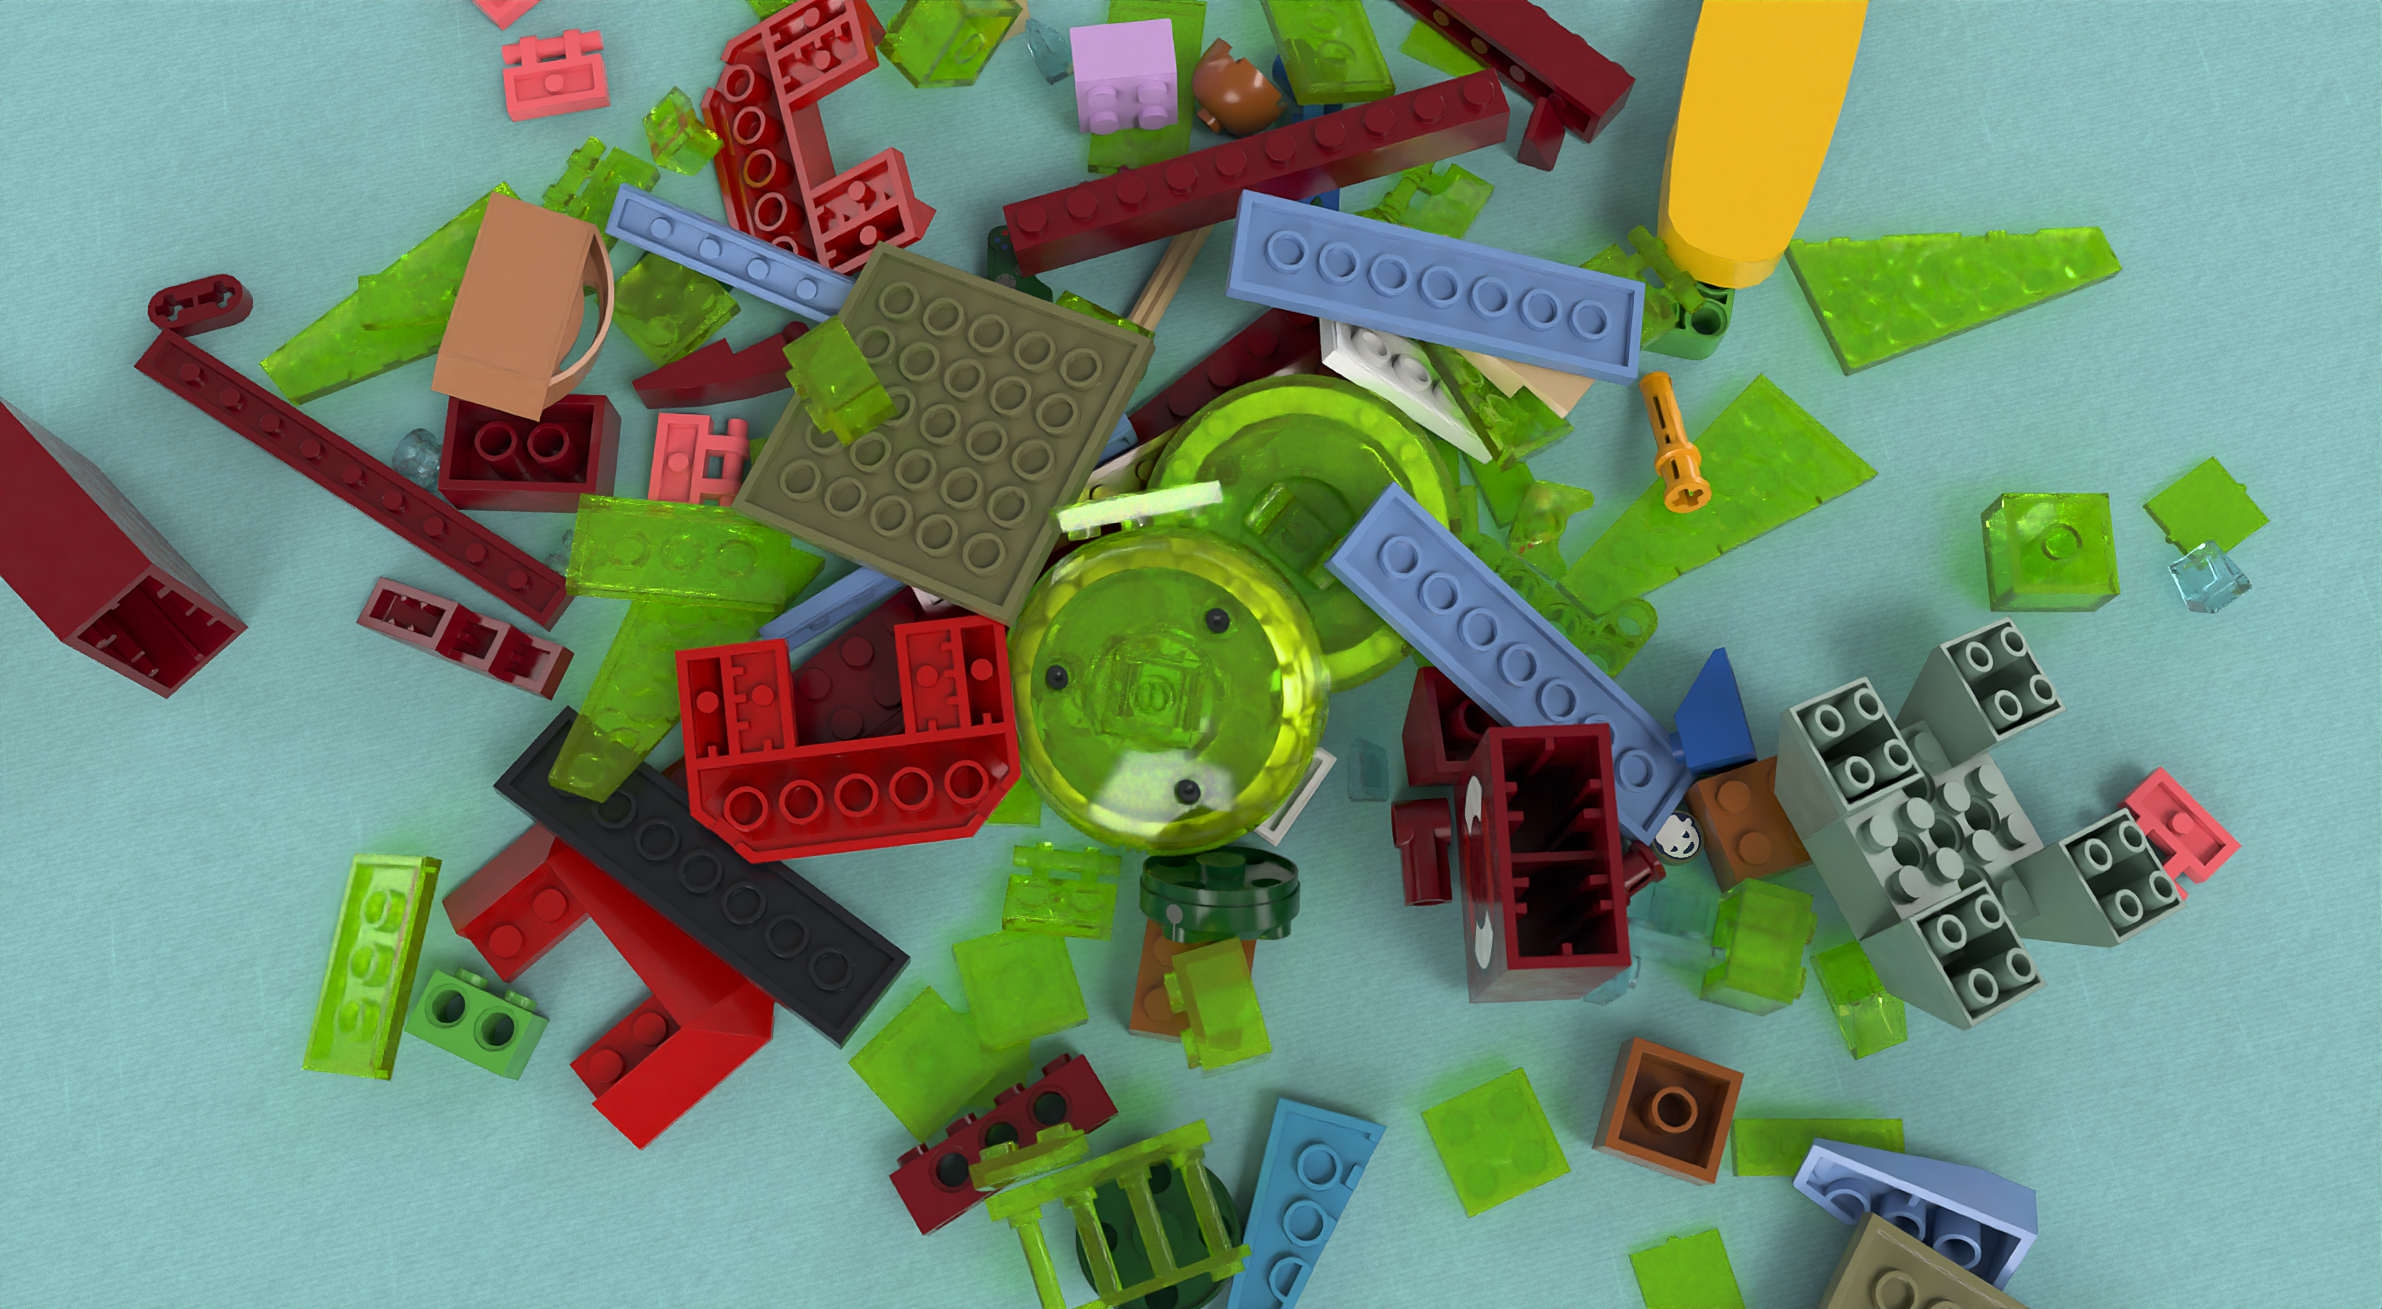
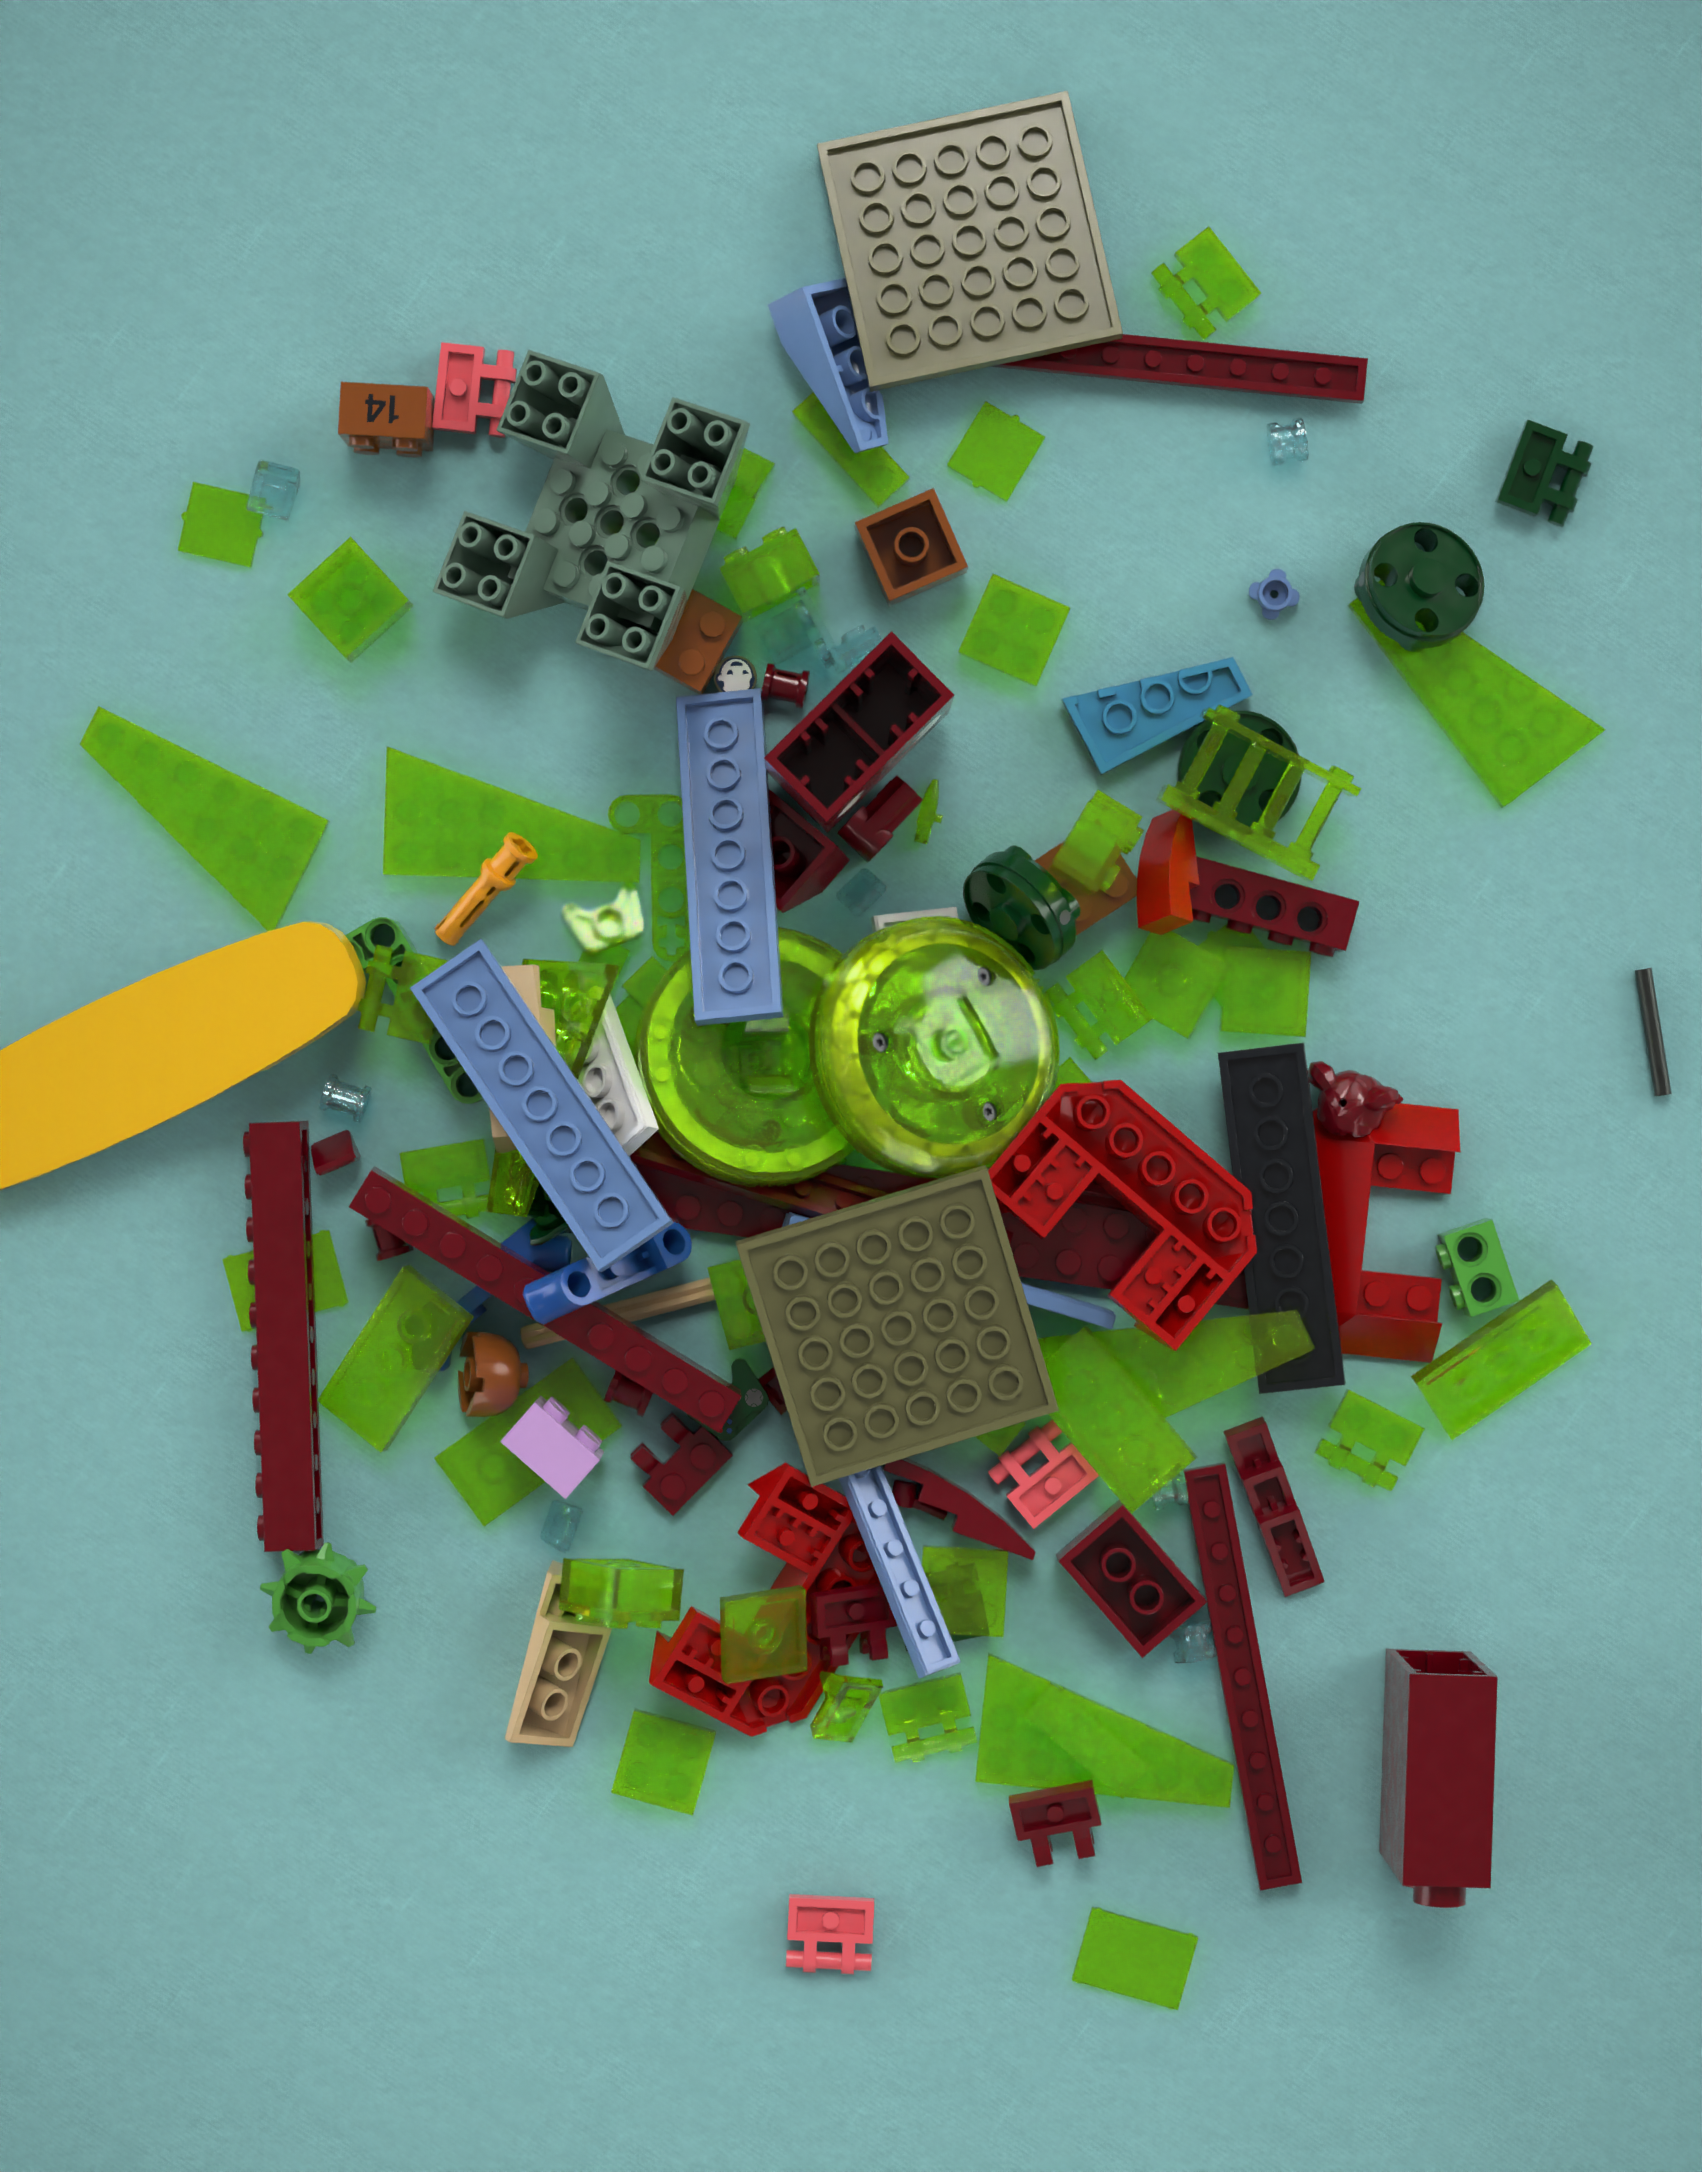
camera: 130 degrees left, 15 degrees up
(200, 305) = (1222, 1899): dark red beam -> none
(232, 188) = (1134, 1958): none -> clear neon green piece
(408, 217) = (1054, 1812): none -> dark red plate
(438, 790) = (1375, 1428): none -> clear neon green plate
(524, 309) = (1055, 1655): nougat piece -> none
(559, 85) = (882, 1820): coral plate -> none
(738, 1061) = (1364, 1095): none -> dark red hair
(748, 193) = (848, 1612): none -> dark red plate
(797, 104) = (763, 1634): none -> clear neon green plate
(838, 381) = (931, 1410): clear neon green brick -> none
(1000, 175) = (686, 1469): none -> dark red plate
(1009, 1164) = (1281, 882): clear neon green plate -> none
(1124, 1063) = (1166, 874): none -> red slope
(1134, 509) = (853, 1155): clear neon green plate -> none
(1250, 165) = (583, 1283): none -> blue plate
(1387, 901) = (927, 813): none -> clear neon green helmet
(1584, 183) = (345, 1098): none -> clear light blue bush
(1713, 722) = (648, 711): blue slope -> none
(2211, 724) = (386, 418): none -> dark orange brick

